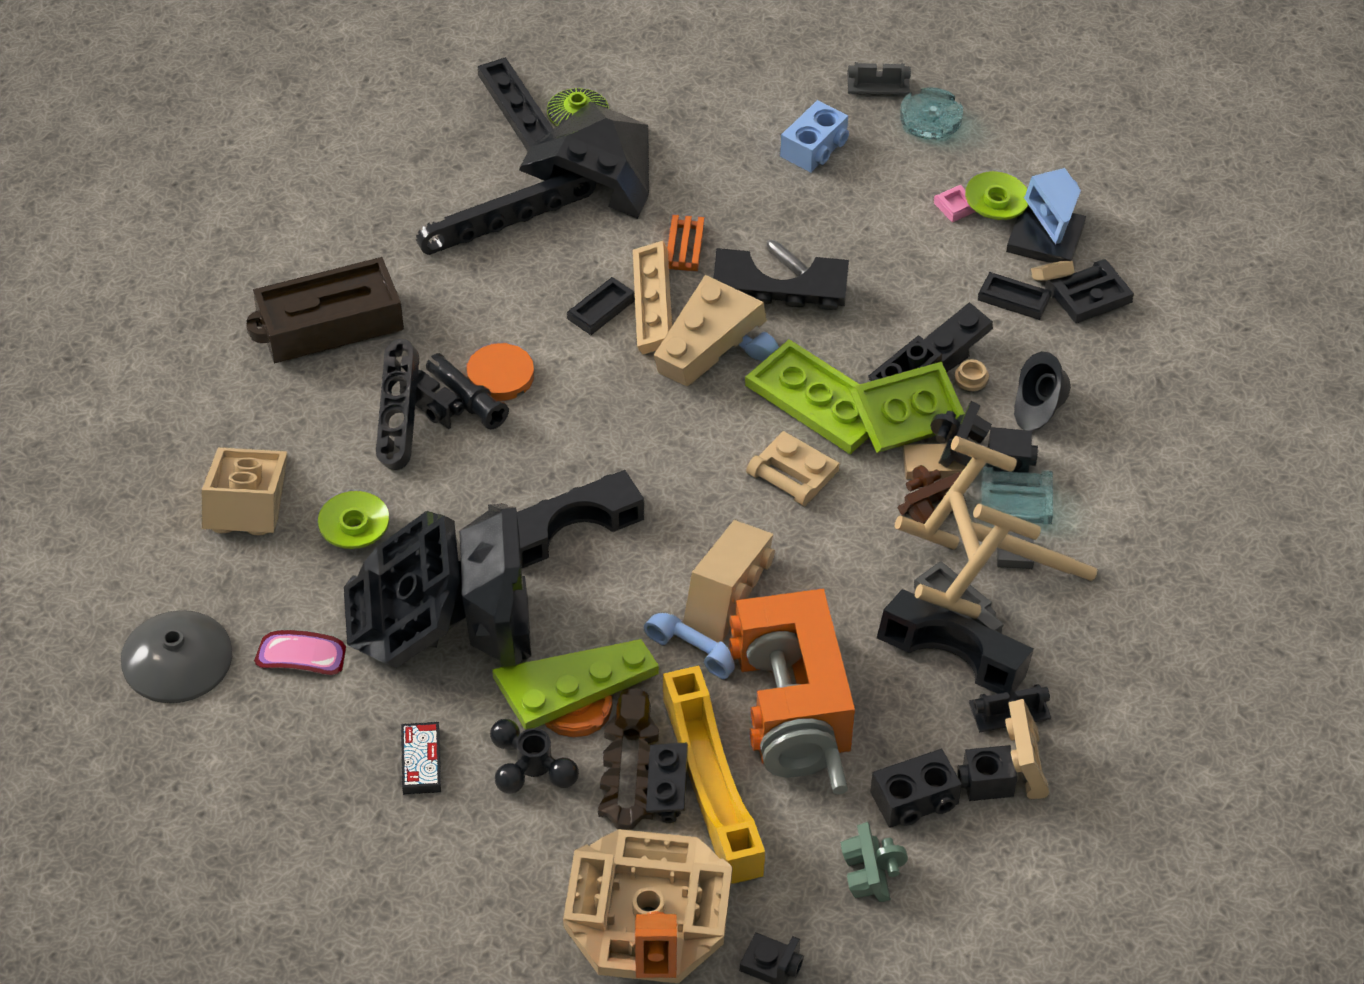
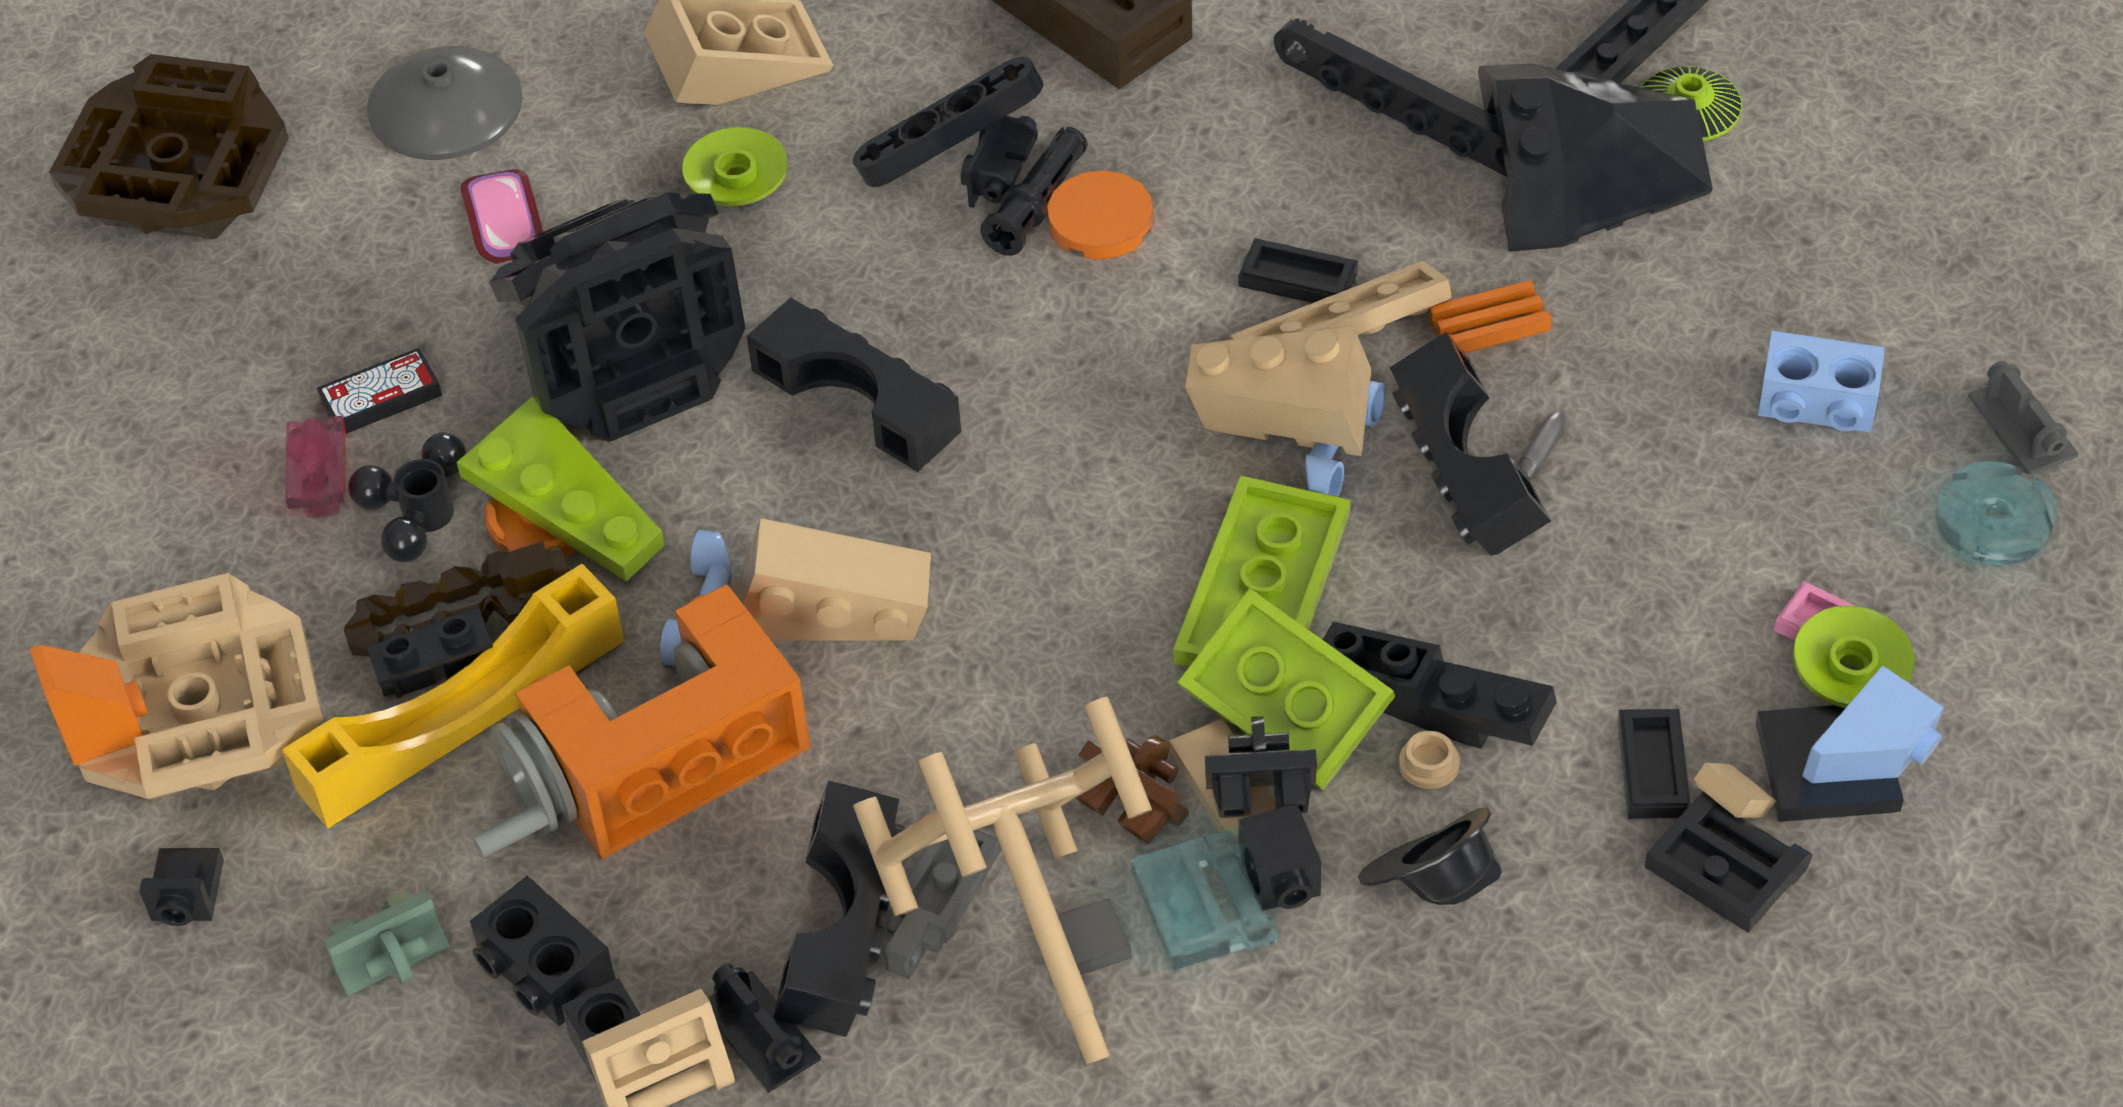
camera: 70 degrees right, 0 degrees up
(138, 771) = (172, 148): none -> dark brown piece
(477, 798) = (315, 466): none -> clear pink hips
(798, 461) = (1121, 608): tan plate -> none

